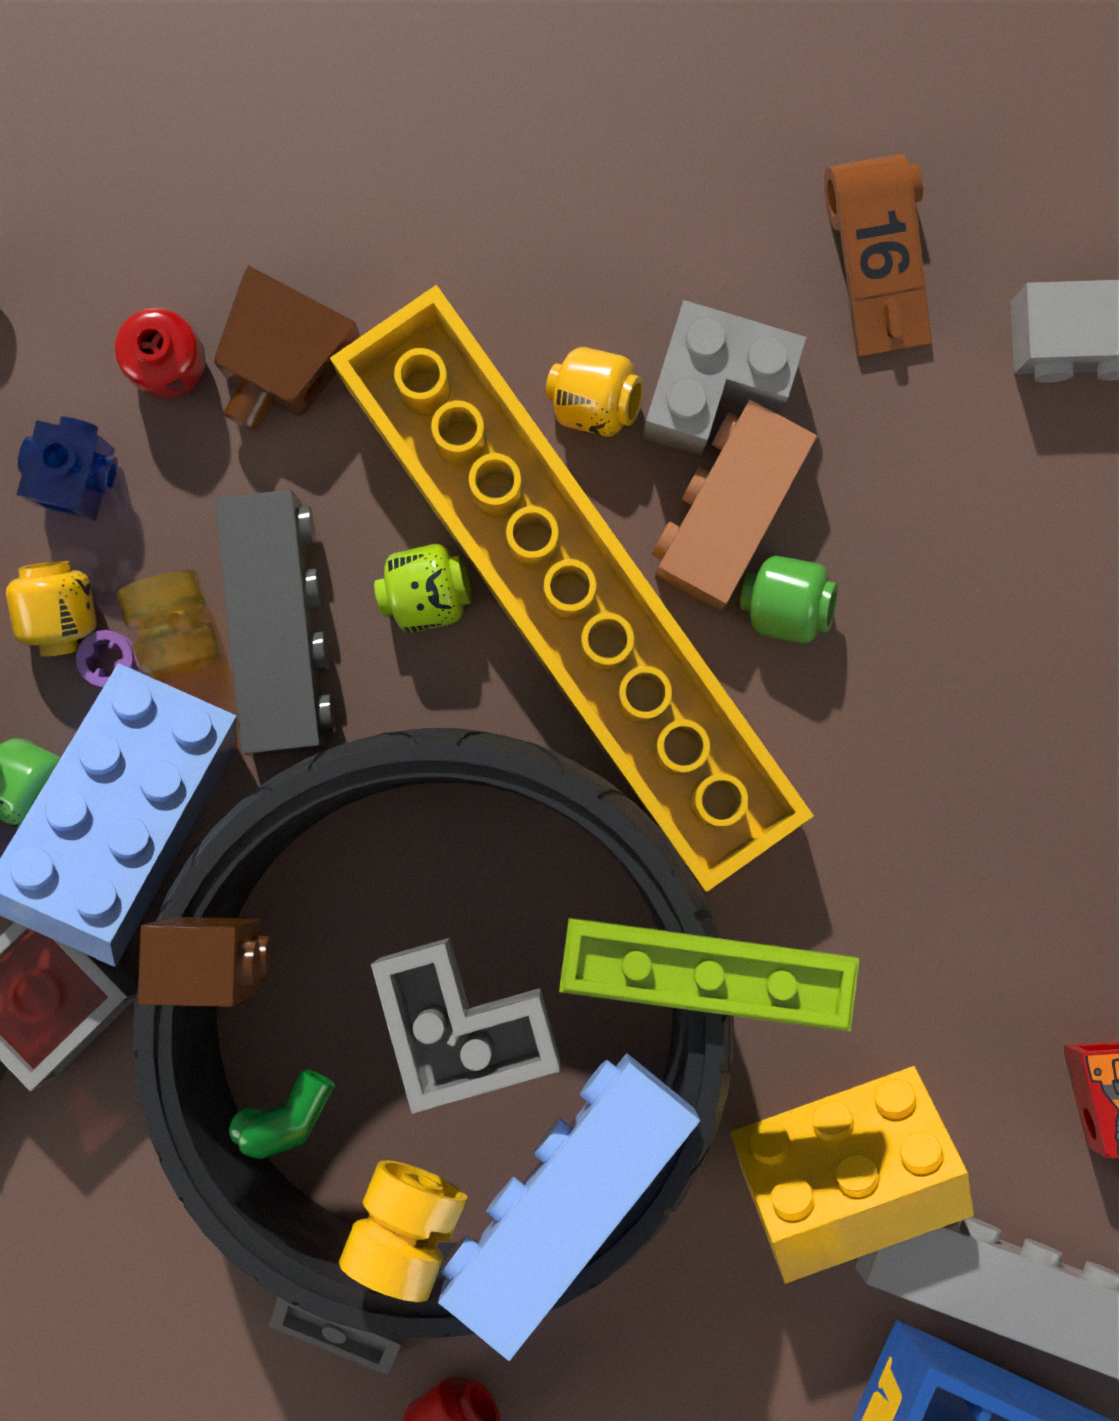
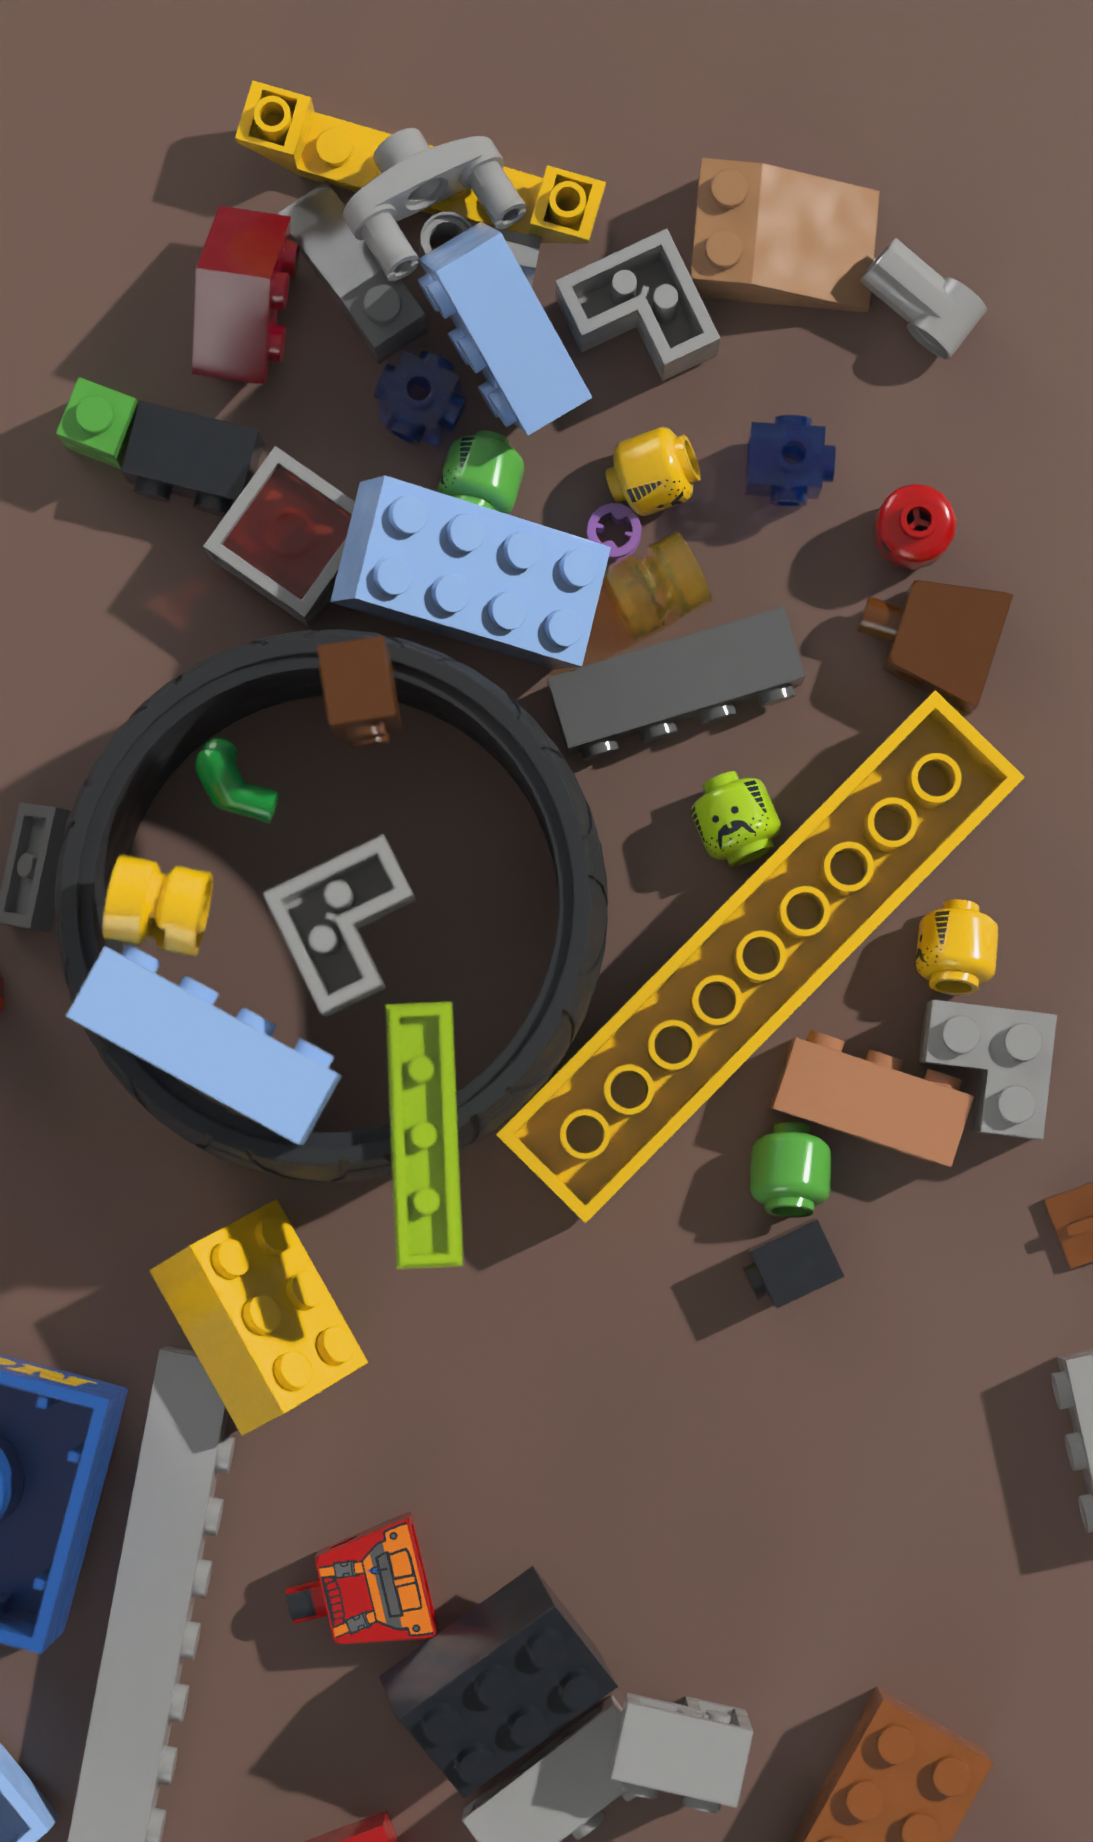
camera: 85 degrees right, 0 degrees up
(884, 614) = (792, 1264): none -> black brick

